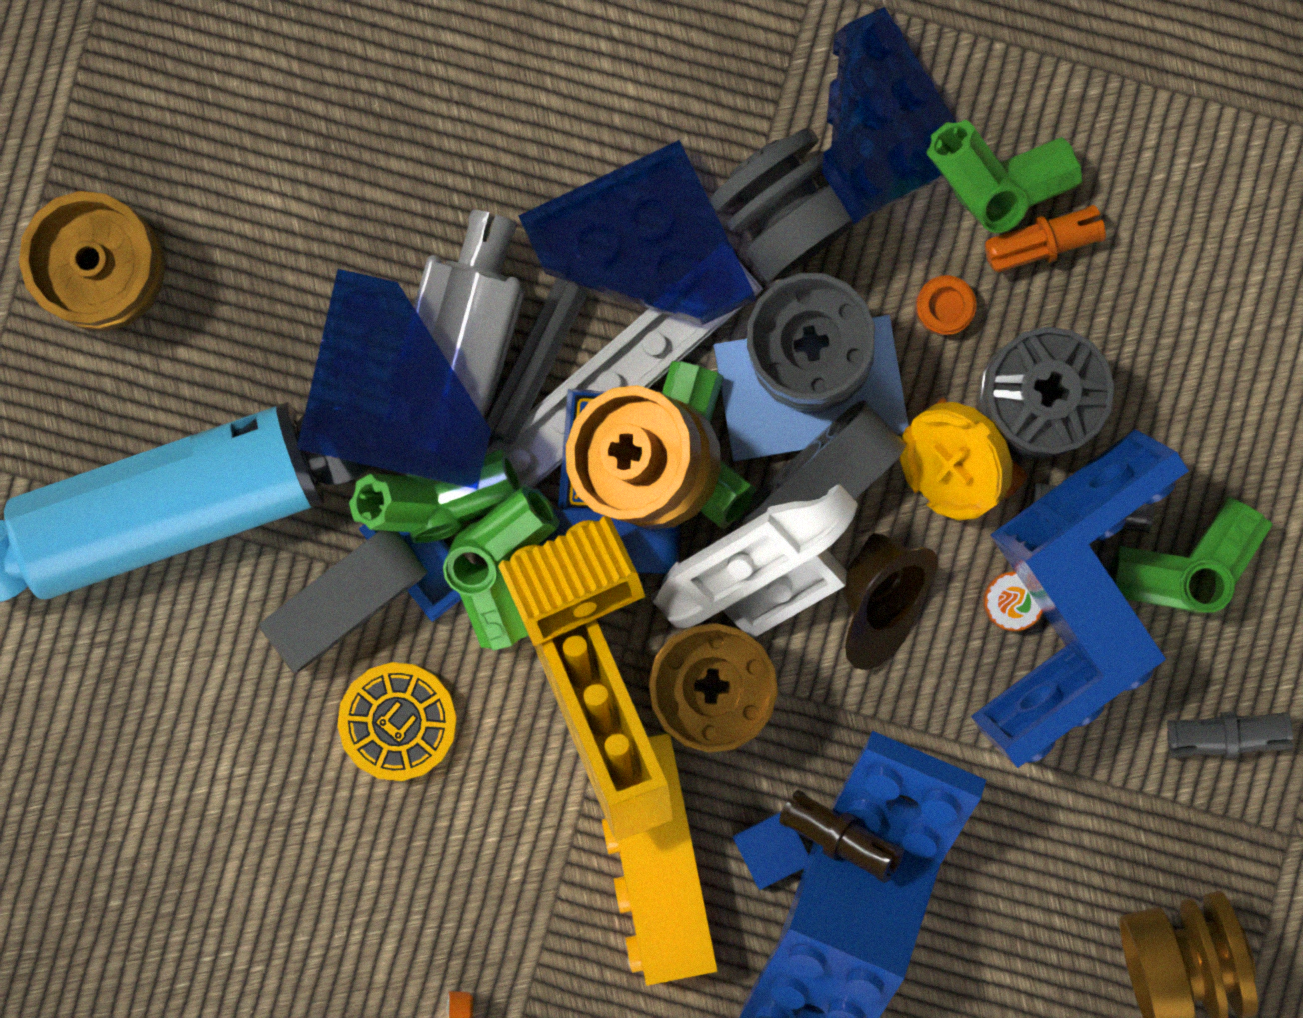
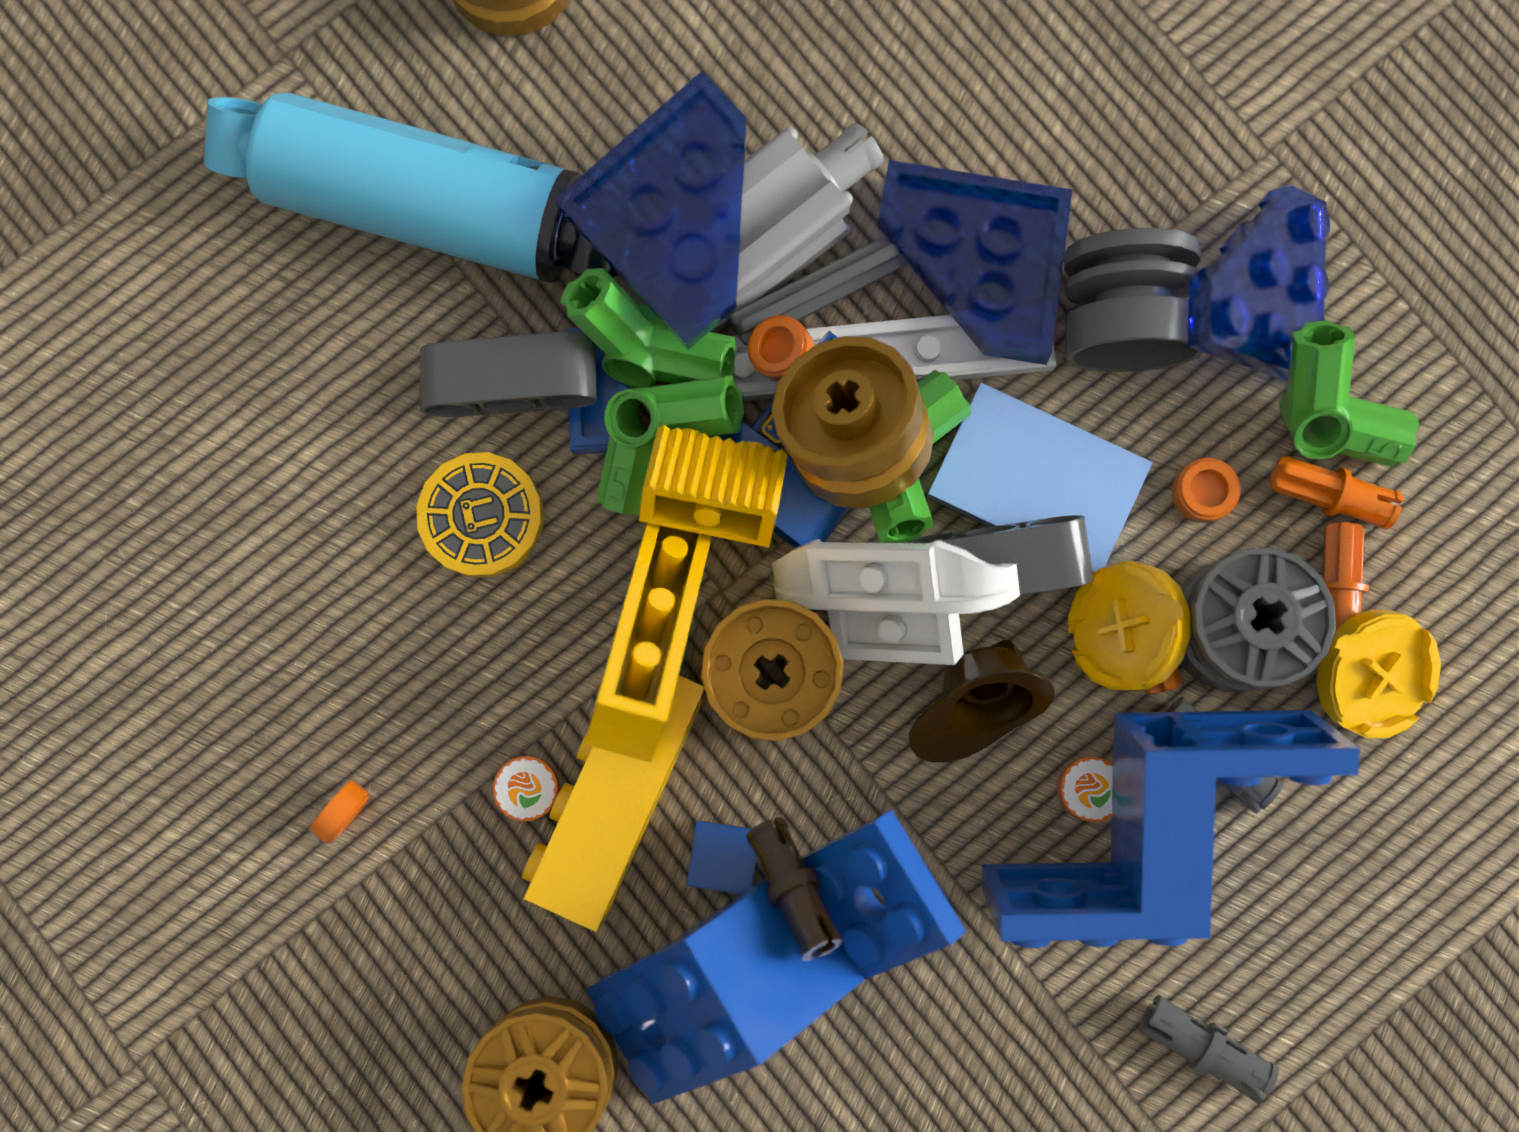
camera: 35 degrees right, 5 degrees down
(541, 431) = (777, 344): none -> orange tile
(585, 903) = (526, 788): none -> tile
(803, 307) = (1093, 398): dark grey wheel -> none
(1098, 310) = (1344, 568): none -> orange axle
(1169, 362) = (1378, 673): none -> yellow tile
(1221, 552) = (1310, 877): bright green piece -> none

